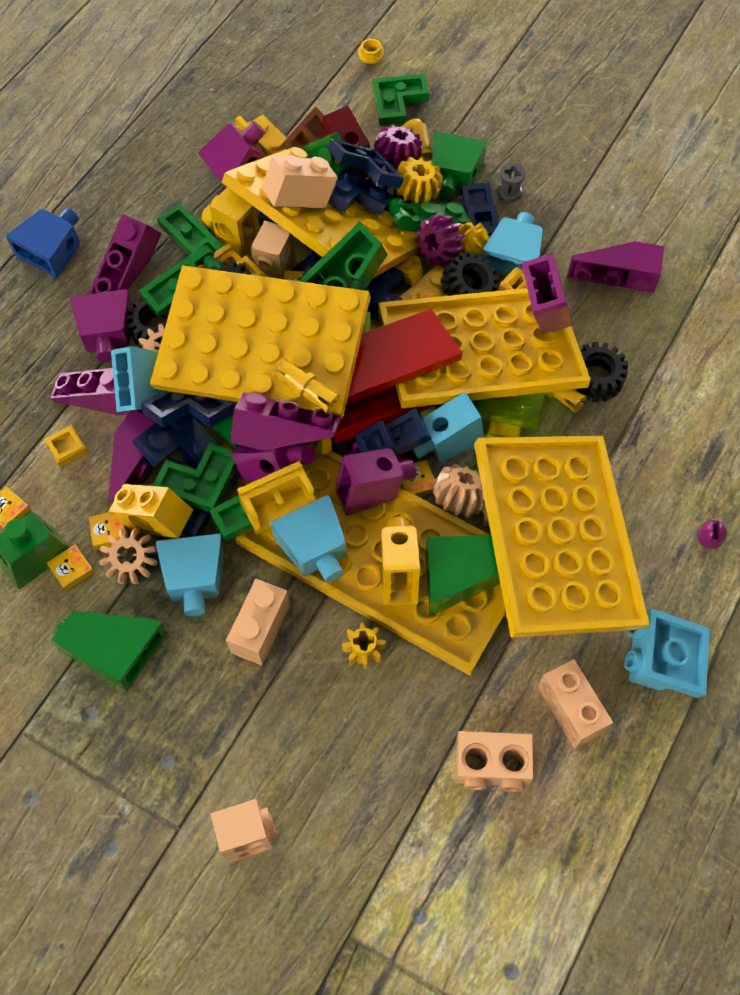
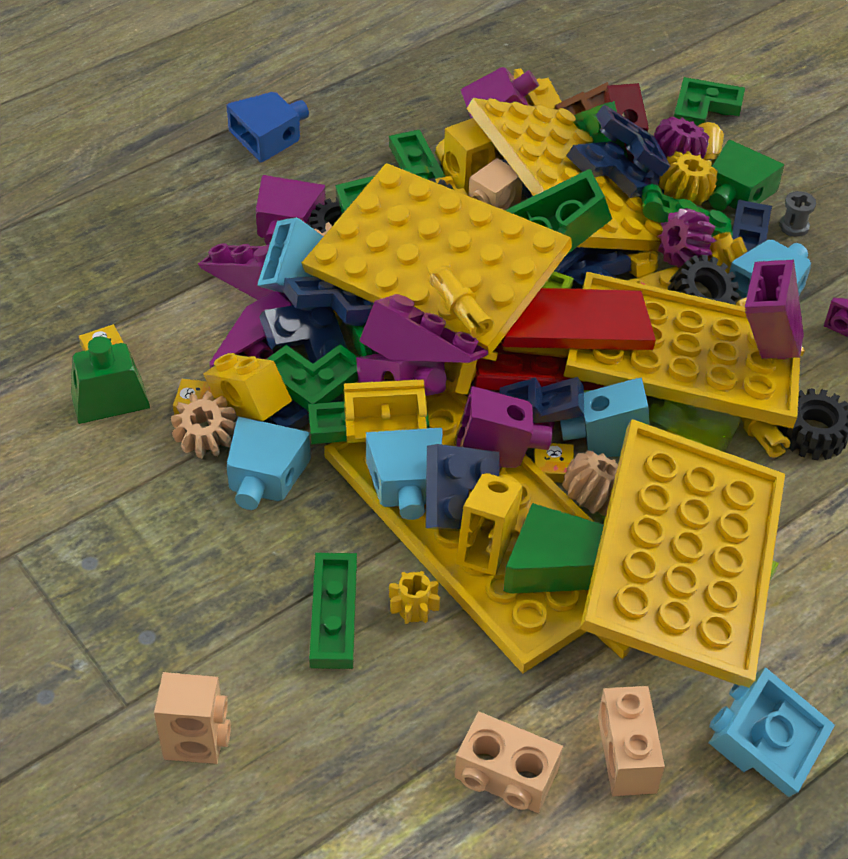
camera: 20 degrees right, 15 degrees down
(66, 446) = (192, 310): yellow tile -> none
(70, 567) = (140, 420): yellow tile -> none
(109, 644) = (144, 499): green slope -> none
(126, 255) = (344, 156): magenta slope -> none
(258, 622) = (313, 526): light nougat brick -> none
(299, 182) = (547, 127): light nougat brick -> none
(306, 682) = (333, 611): none -> green plate
(353, 539) = (450, 478): none -> dark blue plate
(370, 51) = (695, 54): yellow plate -> none

